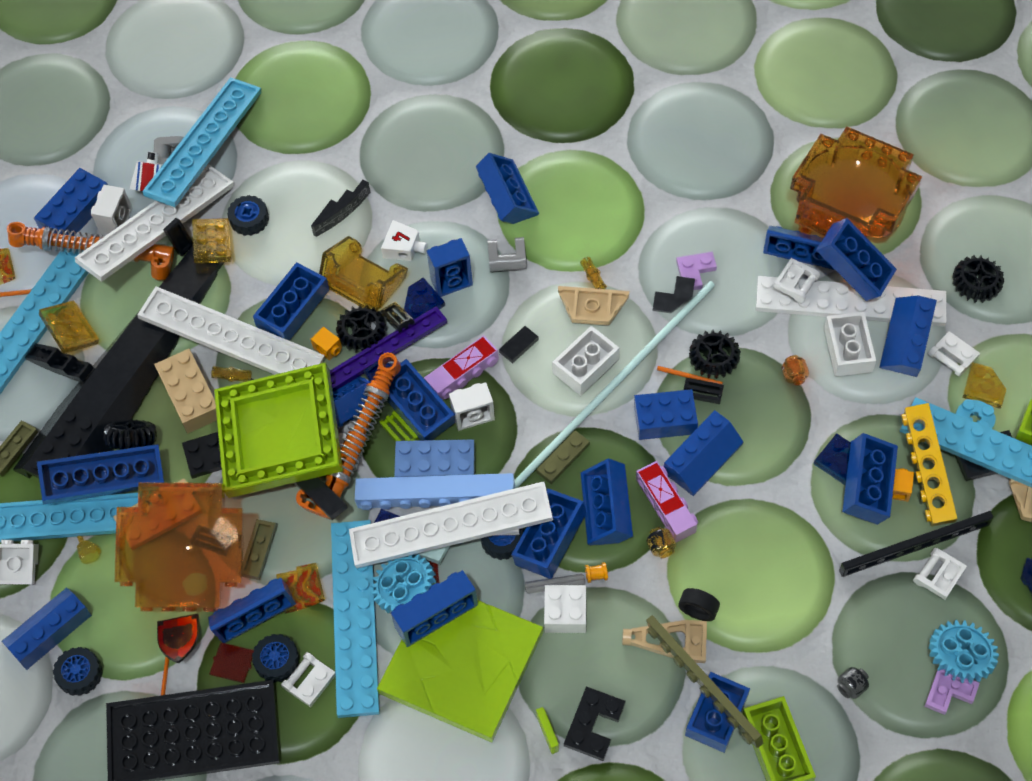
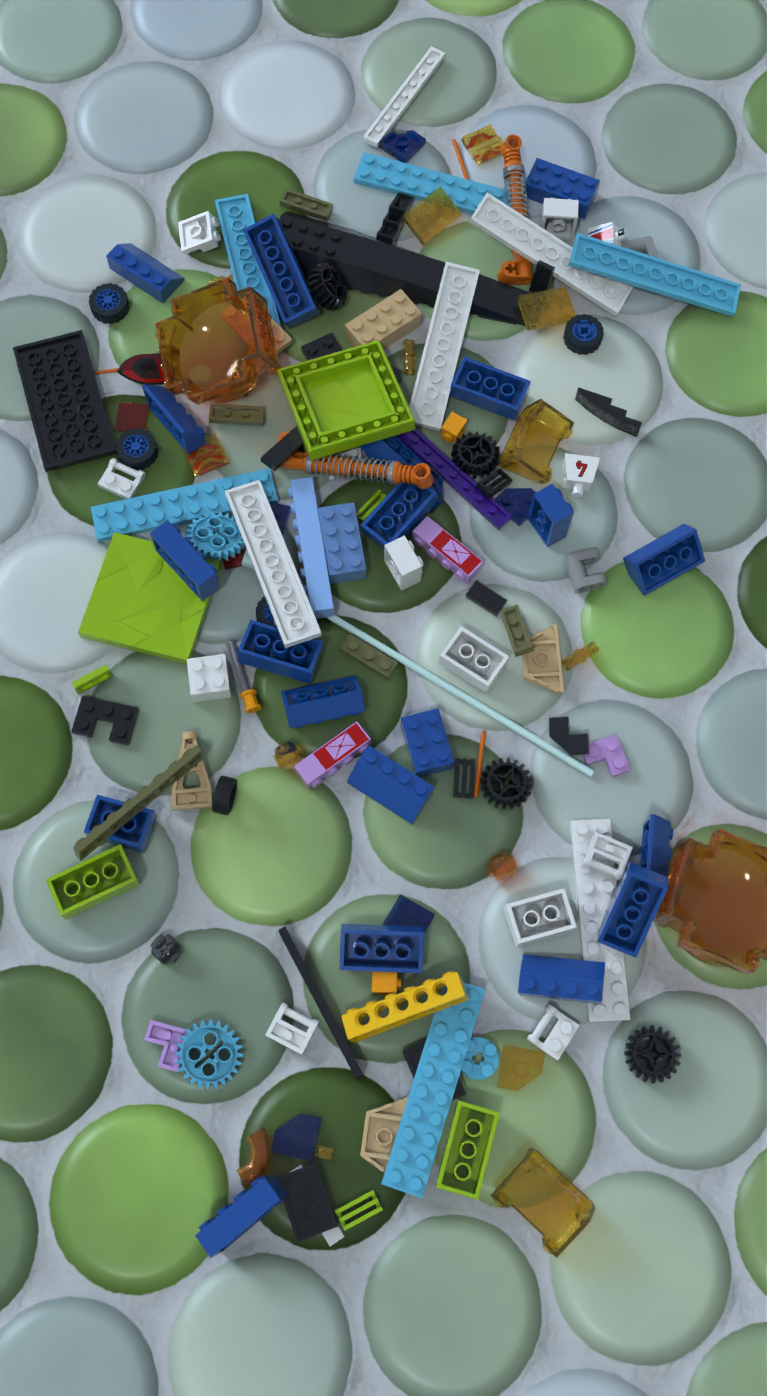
camera: 75 degrees right, 10 degrees up
(561, 319) = (516, 631): none -> olive plate

